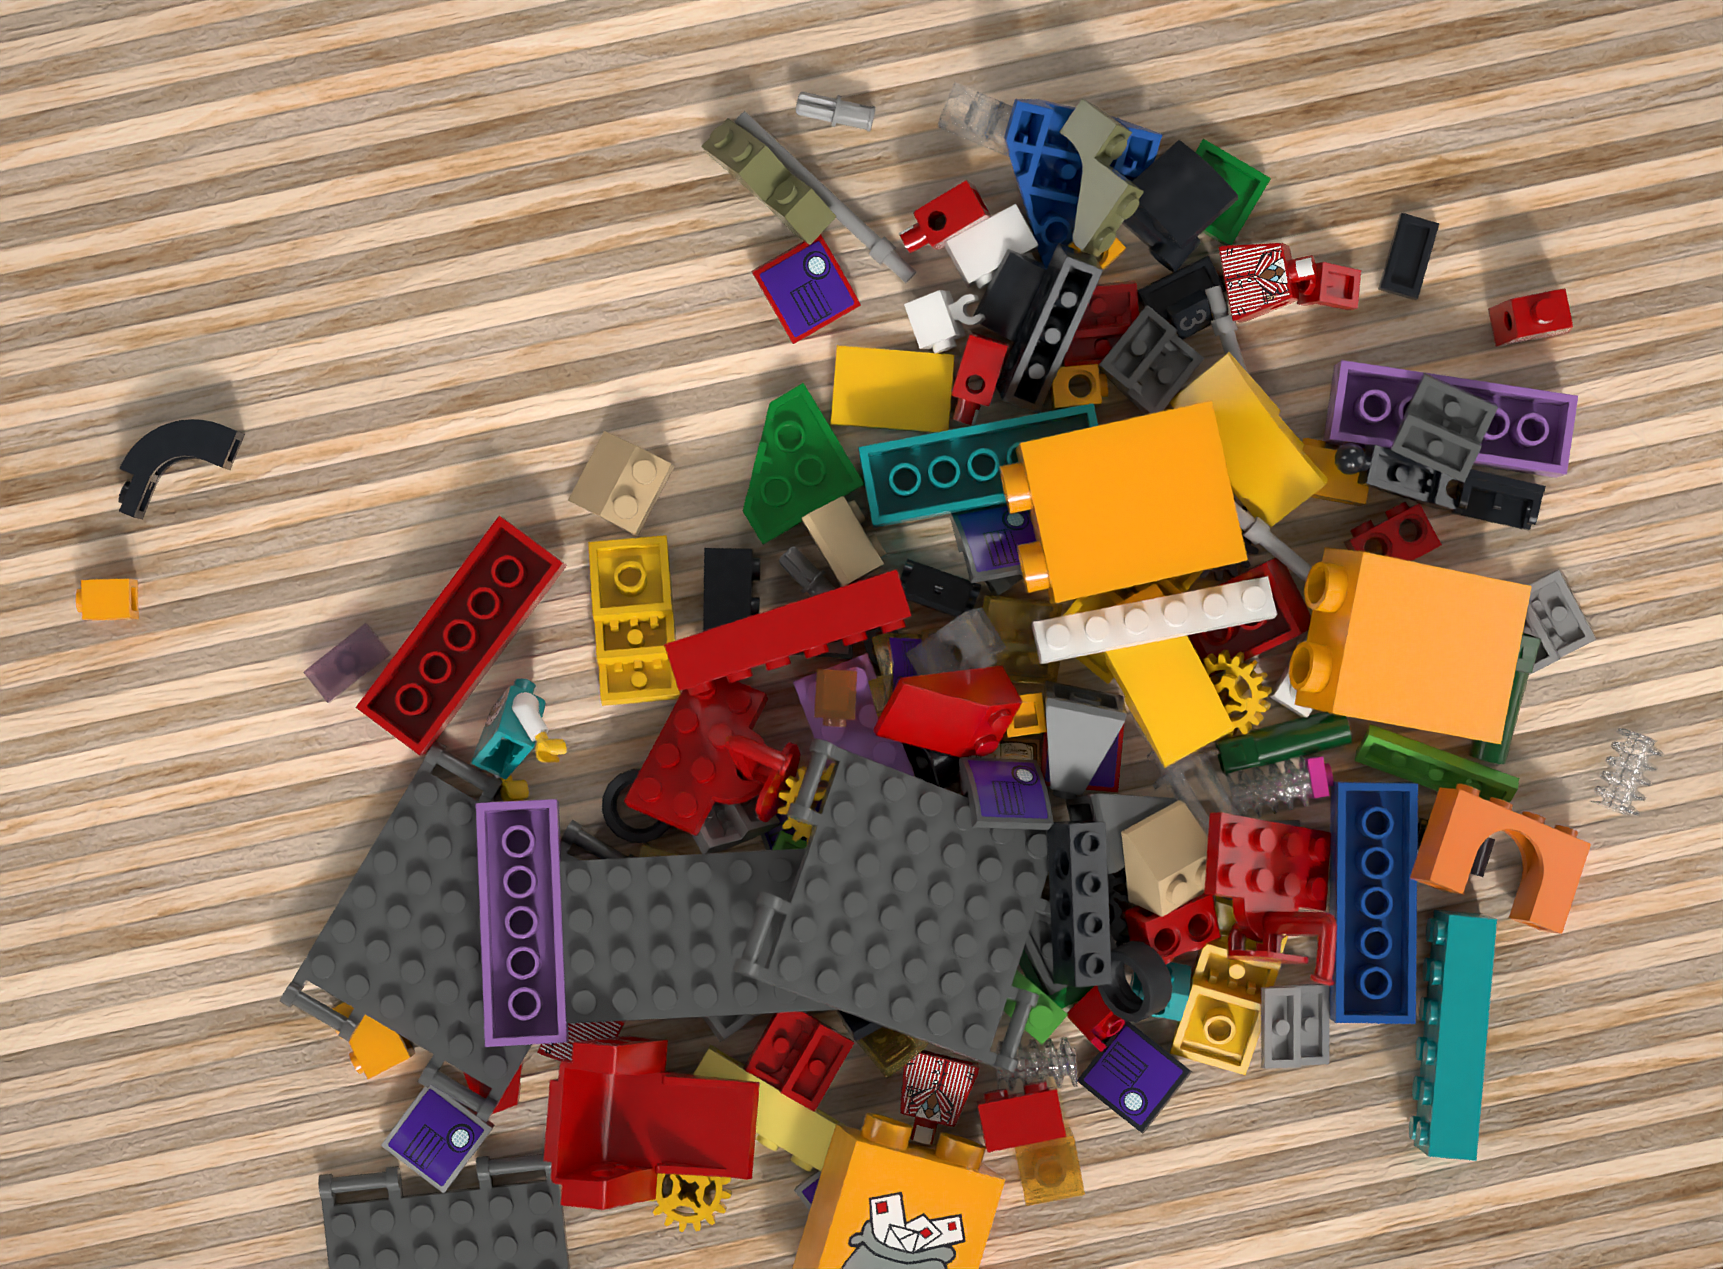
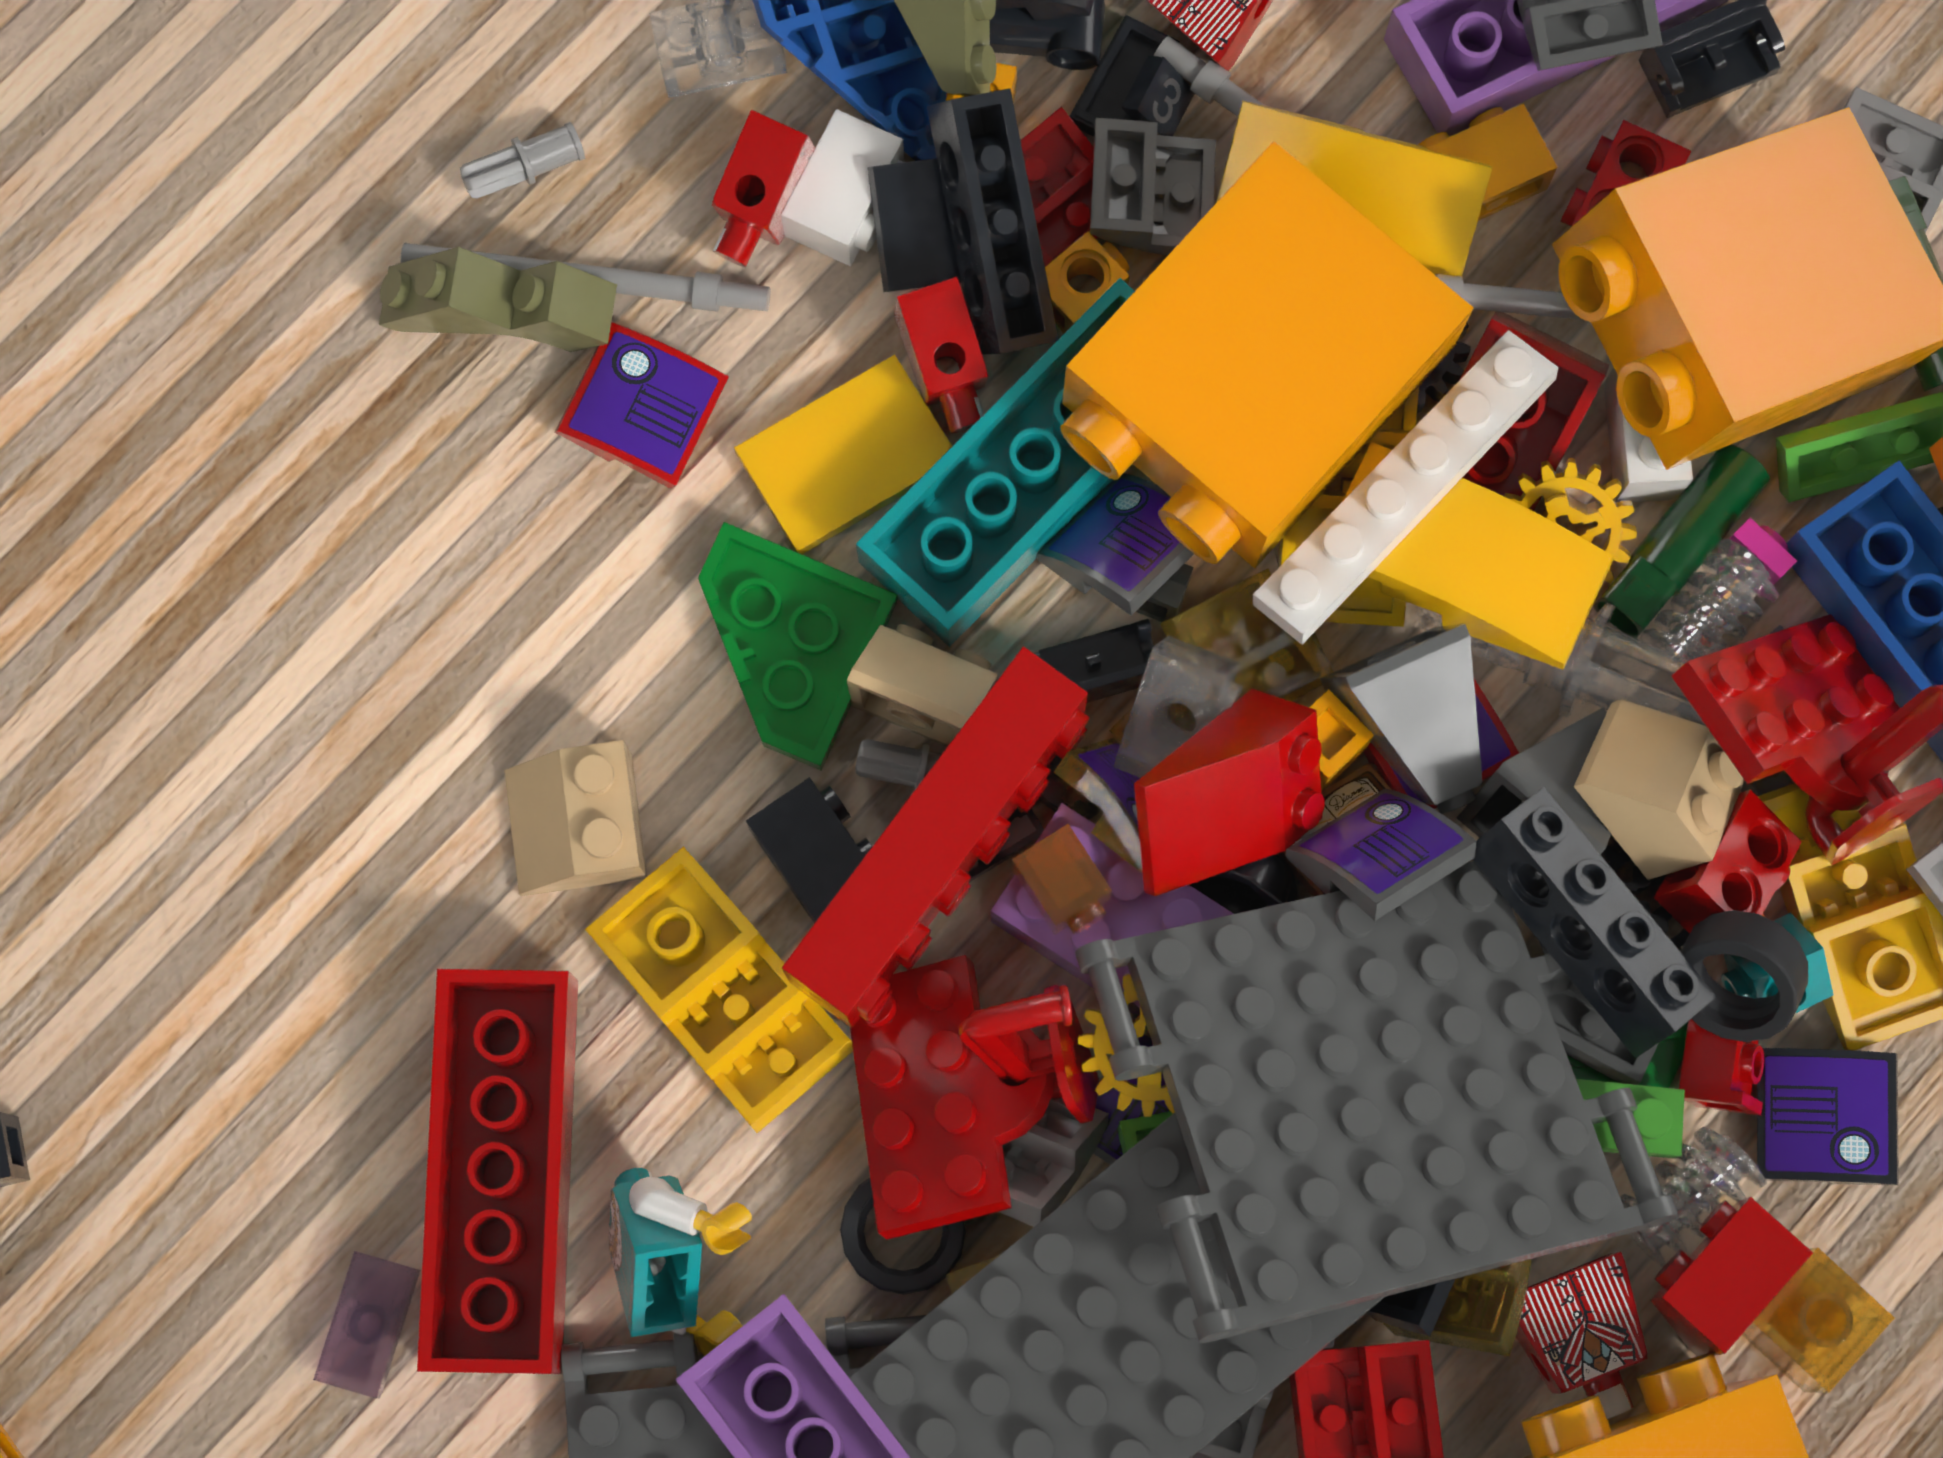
camera: 30 degrees left, 10 degrees down
(938, 319) = (840, 320): white brick -> none
(1395, 475) = (1572, 100): black plate -> none

